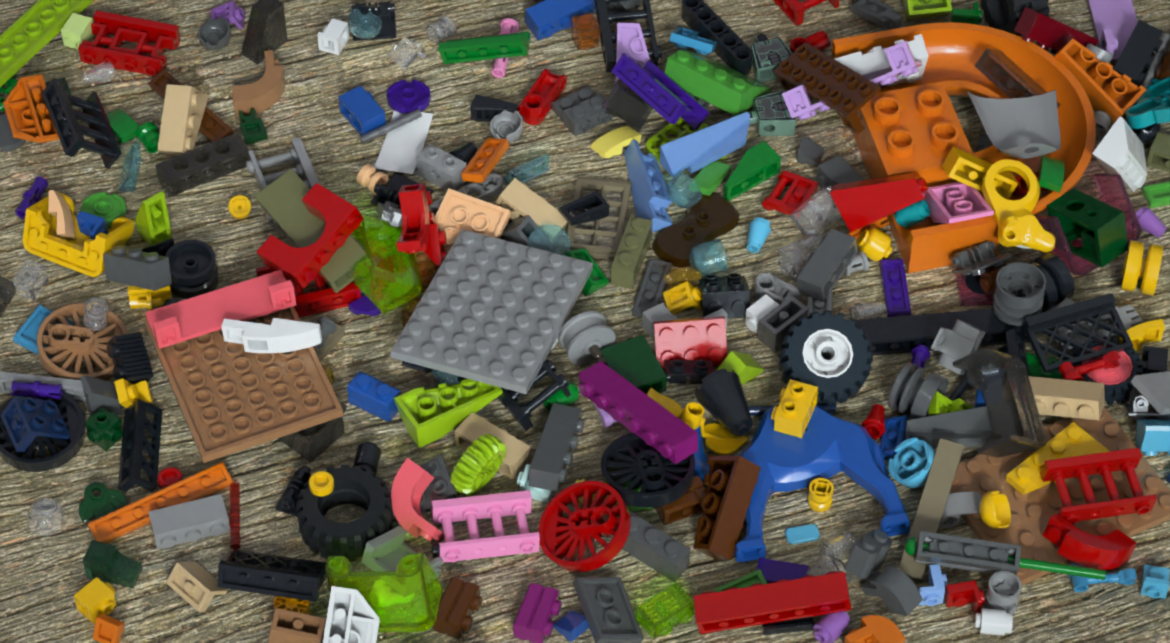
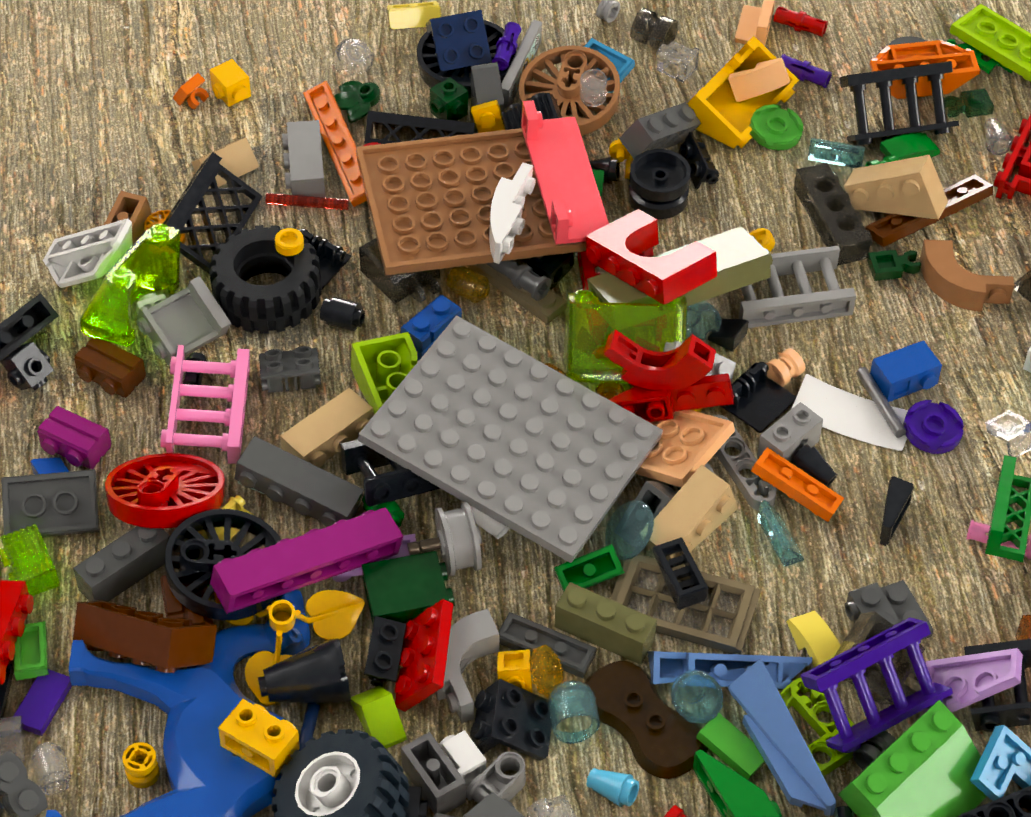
camera: 100 degrees right, 0 degrees up
(91, 224) = (741, 111): blue bracket -> none
(110, 565) = (271, 96): clear green arch -> none
(153, 220) = (733, 152): lime slope -> none
(406, 498) = (265, 334): coral arch -> none
(478, 465) = (283, 394): lime gear -> none
(507, 126) = (858, 519): light grey hair -> none
(539, 98) = (921, 571): red piece -> none
(802, 534) = (98, 741): medium azure piece -> none

